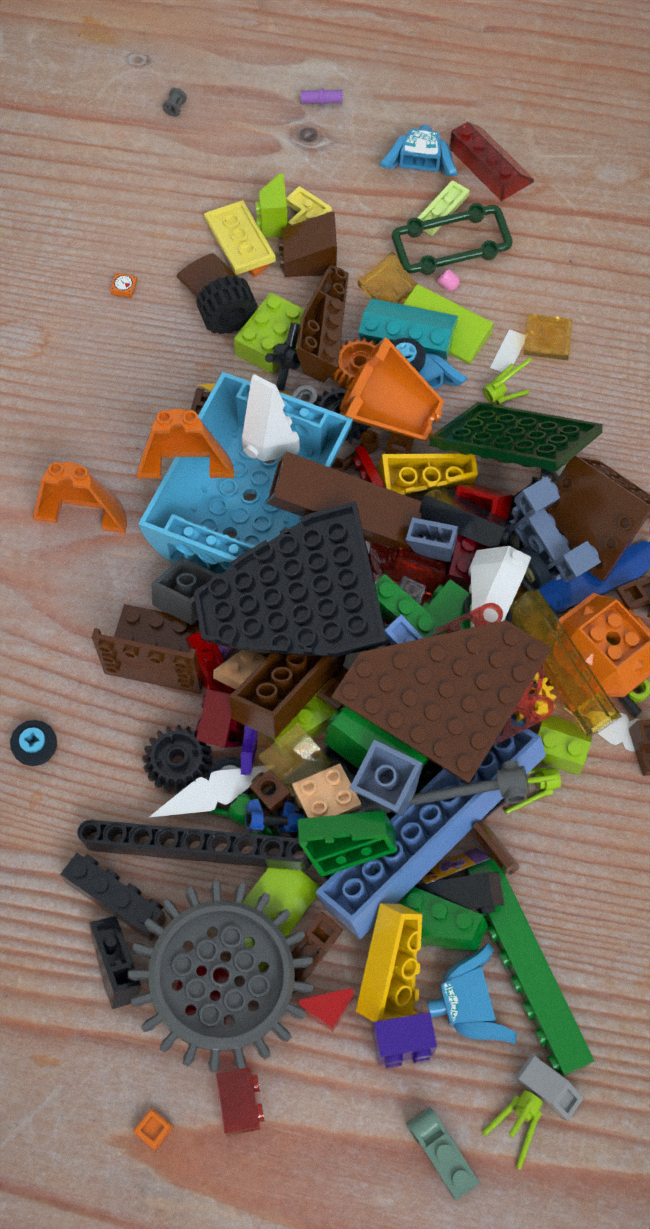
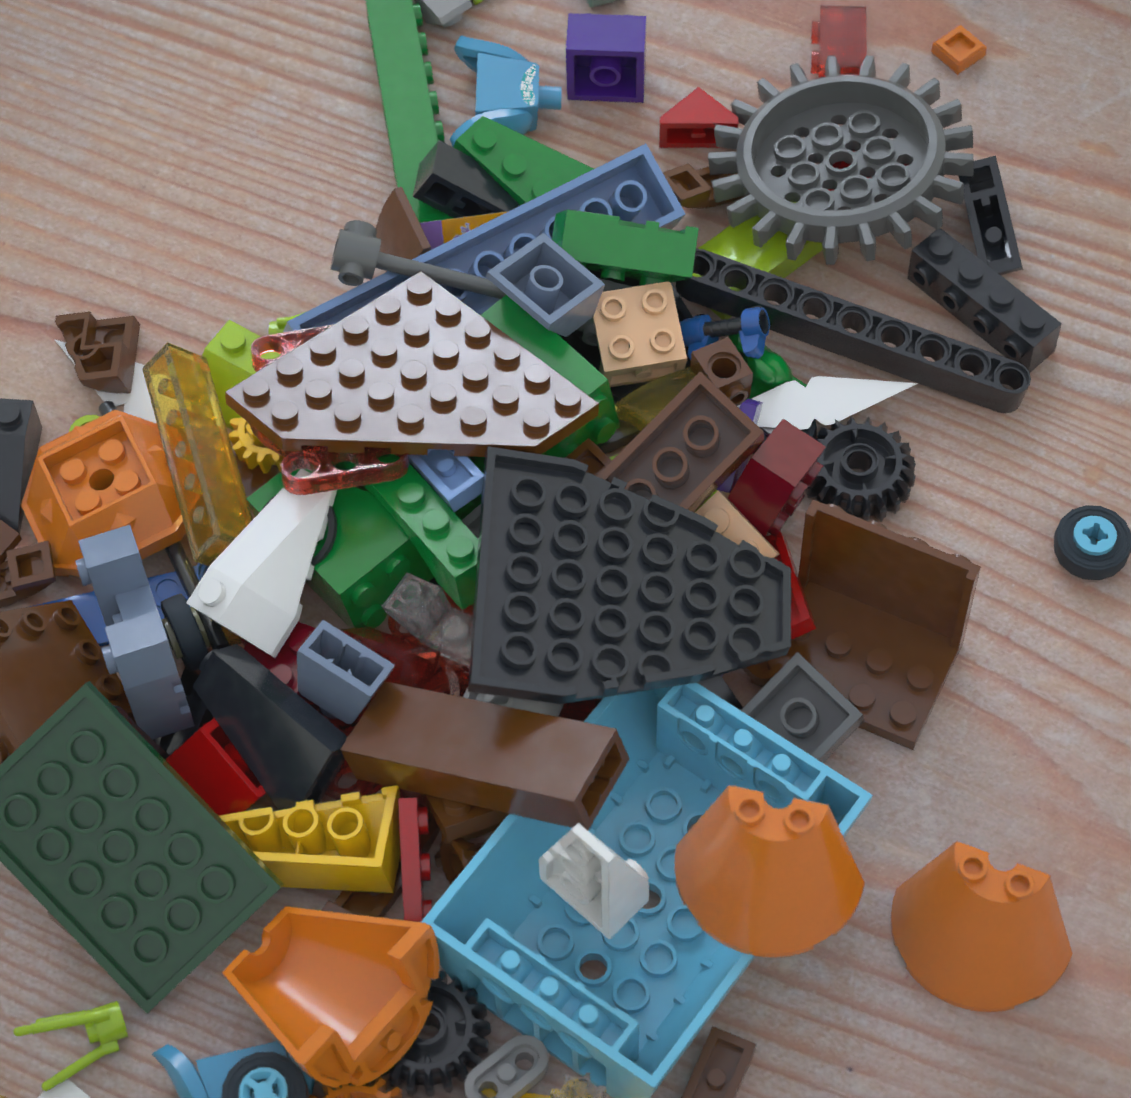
camera: 165 degrees left, 5 degrees down
(392, 965) = (602, 124): yellow wedge -> none

